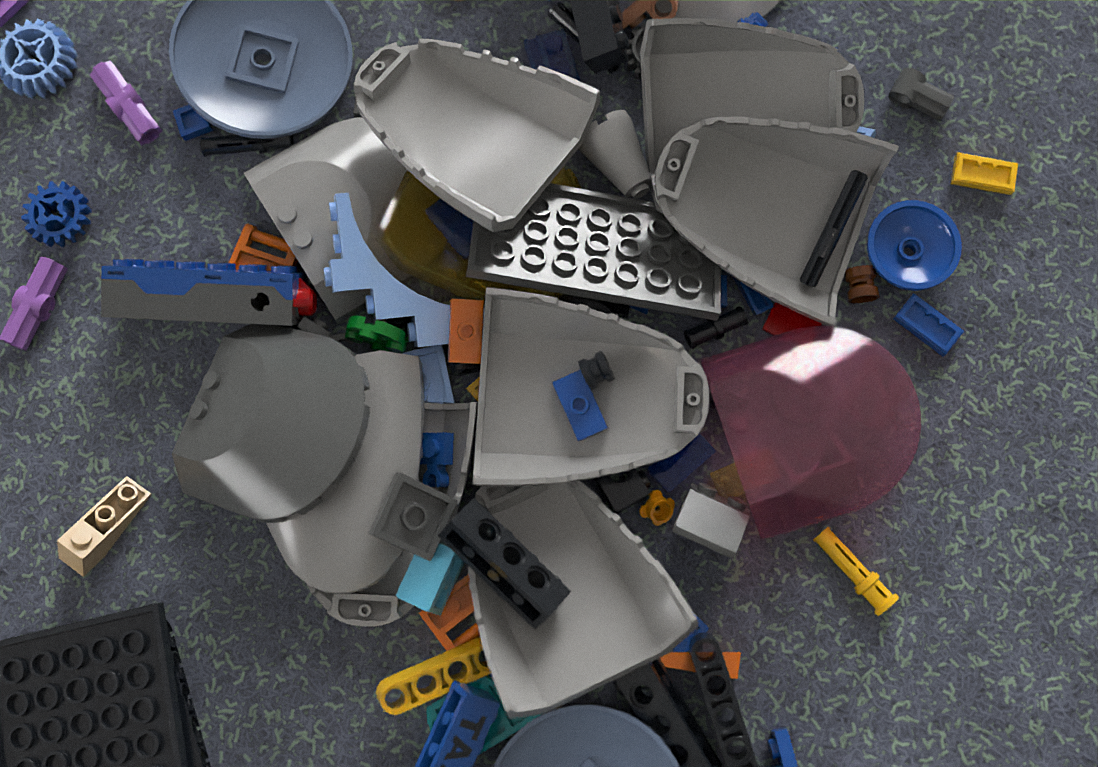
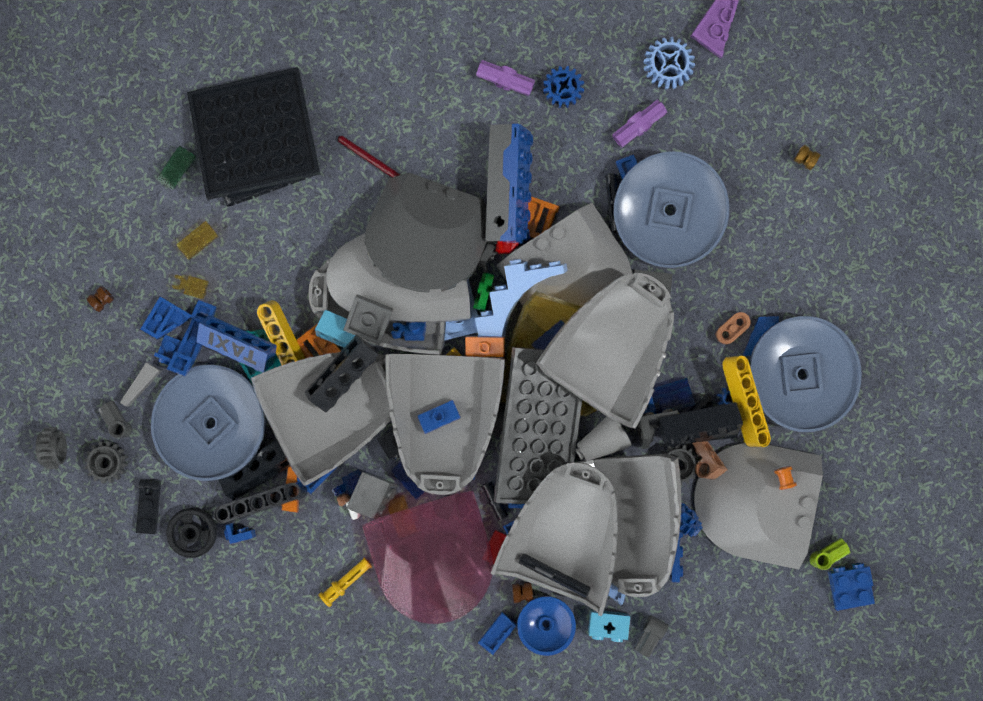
camera: 90 degrees right, 10 degrees up
(101, 526) = (369, 133): tan slope -> none
(143, 529) = (368, 157): none -> dark red piece
(596, 370) = (459, 426): black wheel -> none
(612, 91) = (648, 423): none -> dark grey bracket
(663, 512) = (381, 464): light orange plate -> none
(689, 559) = (350, 482): none -> clear blue plate
(717, 568) = (344, 499): none -> nougat arm
(910, 164) = (617, 633): none -> medium azure brick
(984, 173) = (597, 674): yellow plate -> none

